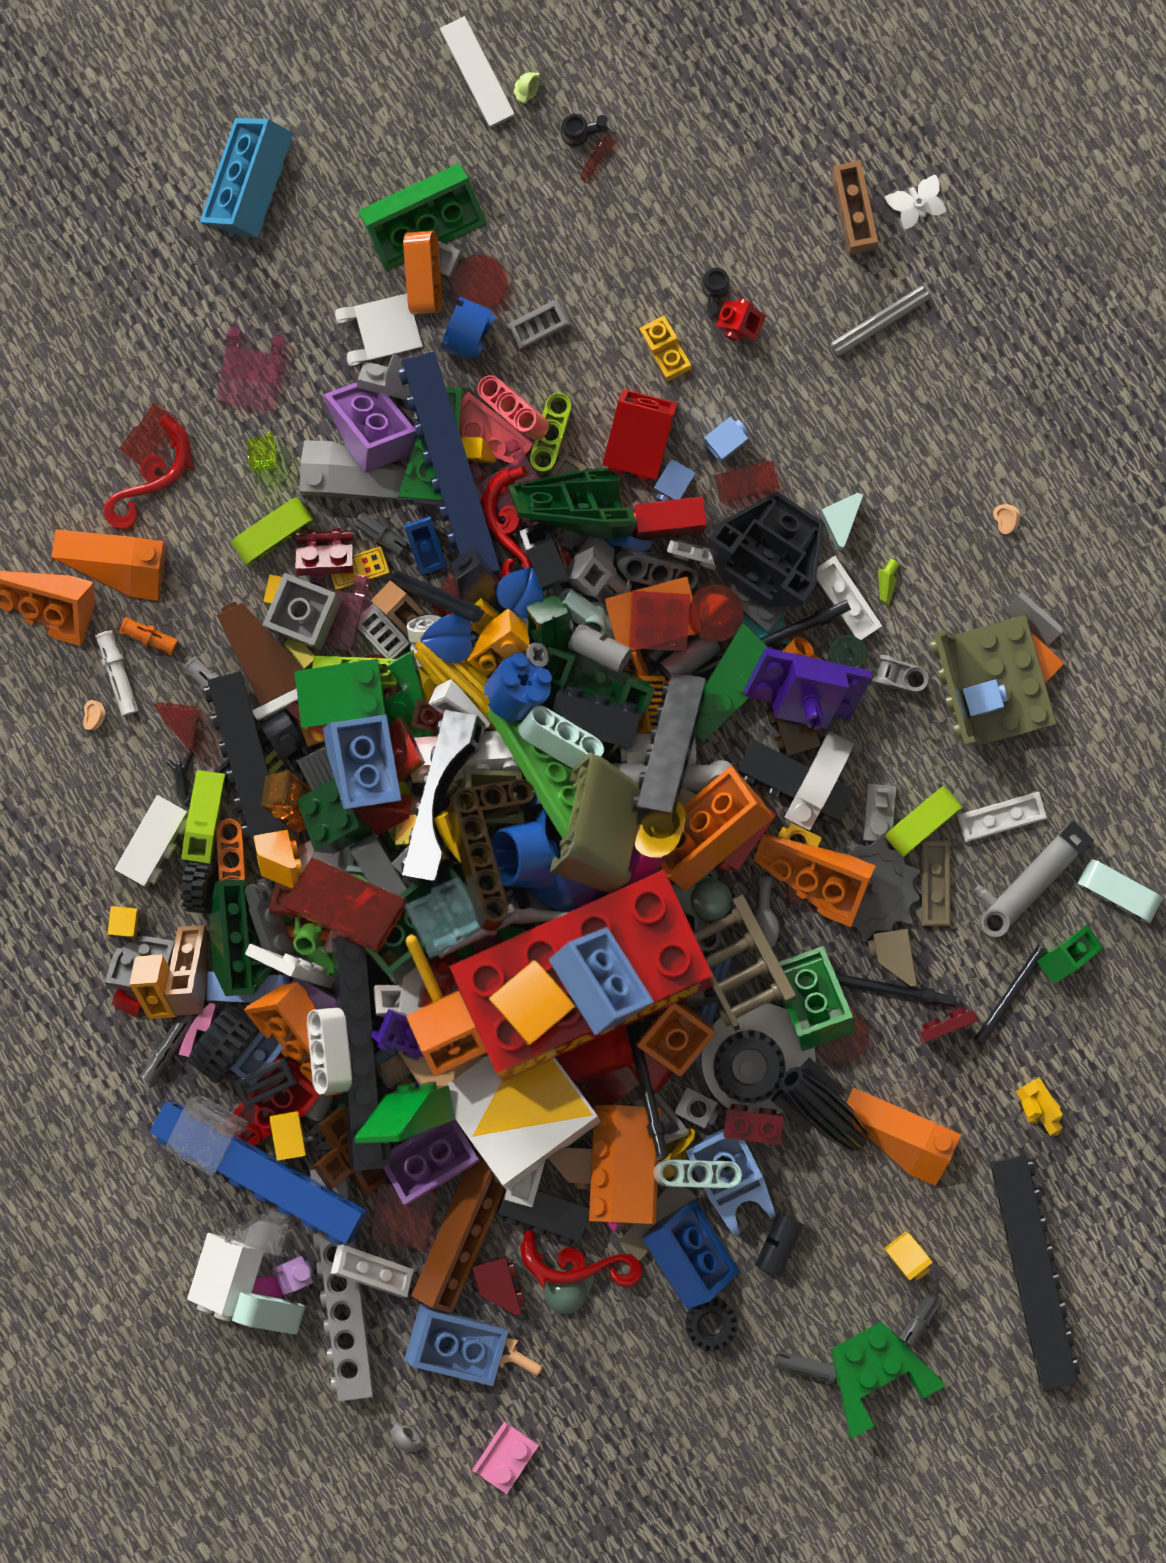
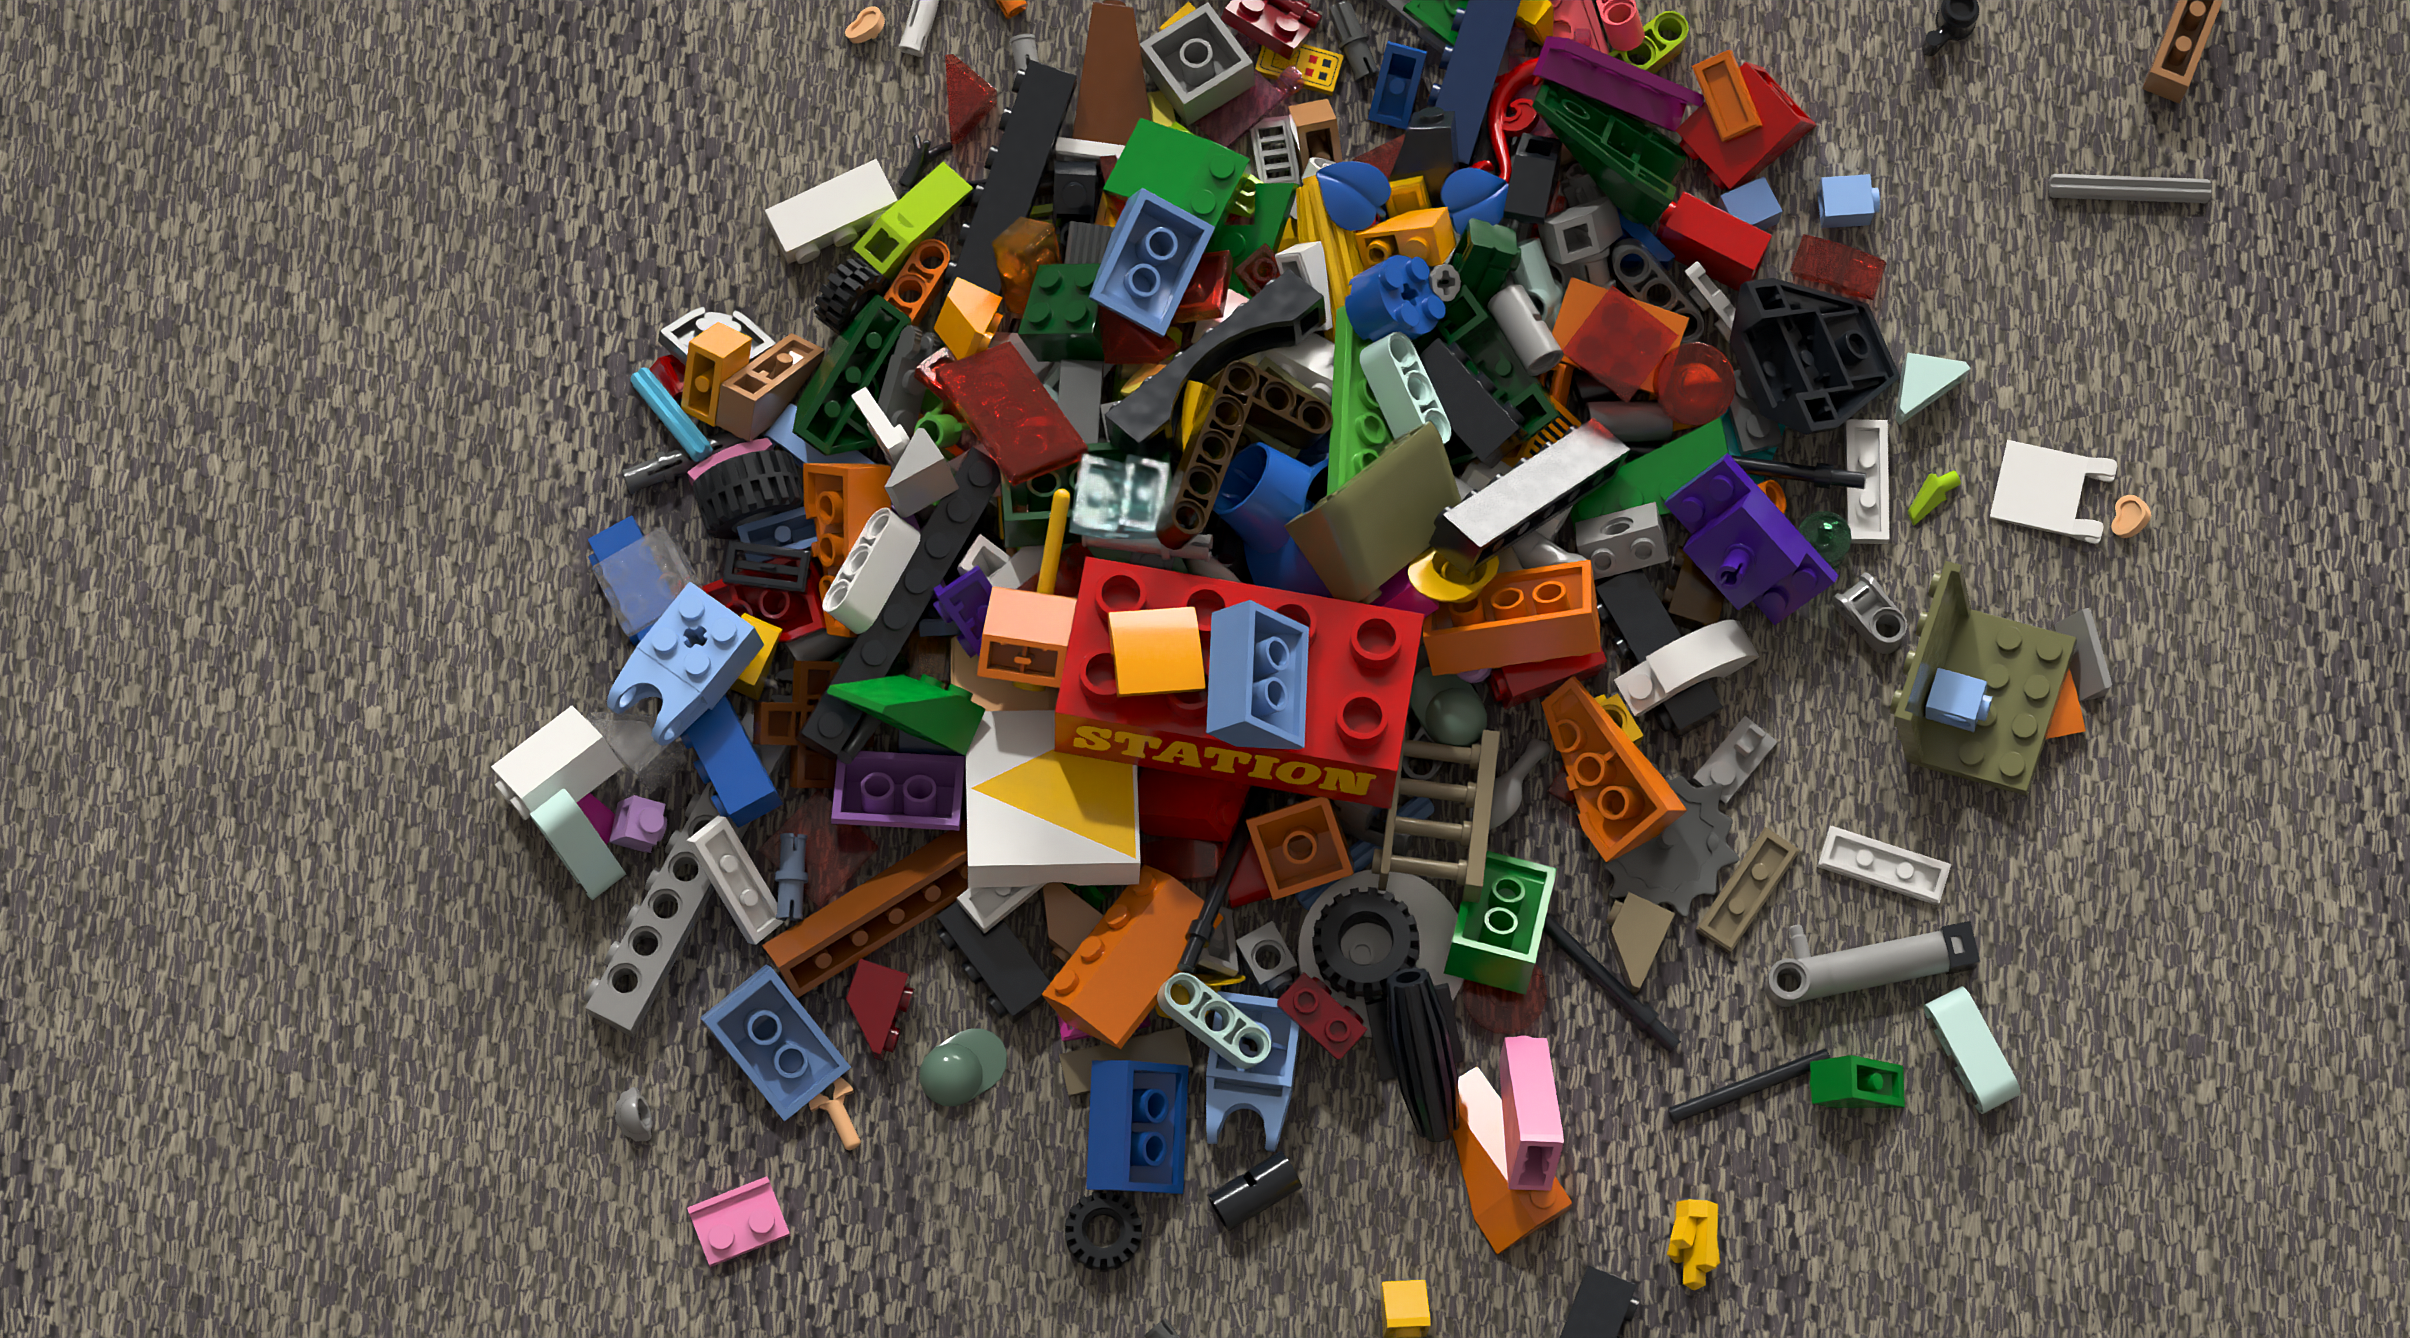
camera: 30 degrees right, 10 degrees down
(123, 921) = (732, 283): yellow slope -> none
(144, 1024) = (671, 414): none -> medium azure axle
(262, 1182) = (681, 671): none -> light blue brick
(319, 977) = (919, 476): none -> light grey slope
(400, 1246) = (791, 877): none -> sand blue pin
(438, 597) = (1372, 145): black axle -> none
(550, 463) = (1615, 82): none -> magenta fence
(574, 1257) = (986, 1056): red plant -> none
(620, 428) = (1727, 95): none -> orange tile
(665, 348) = (1845, 52): yellow slope -> none
(734, 731) = (1623, 540): none -> light grey brick
(740, 320) = (1957, 74): red brick -> none
(904, 1100) = (1529, 1113): none -> bright pink slope
(917, 204) = (2267, 84): white piece -> none
(923, 821) = (1782, 801): lime beam -> none
(934, 1028) = (1662, 1067): dark red plate -> none
(947, 533) = (2044, 488): none -> white flag

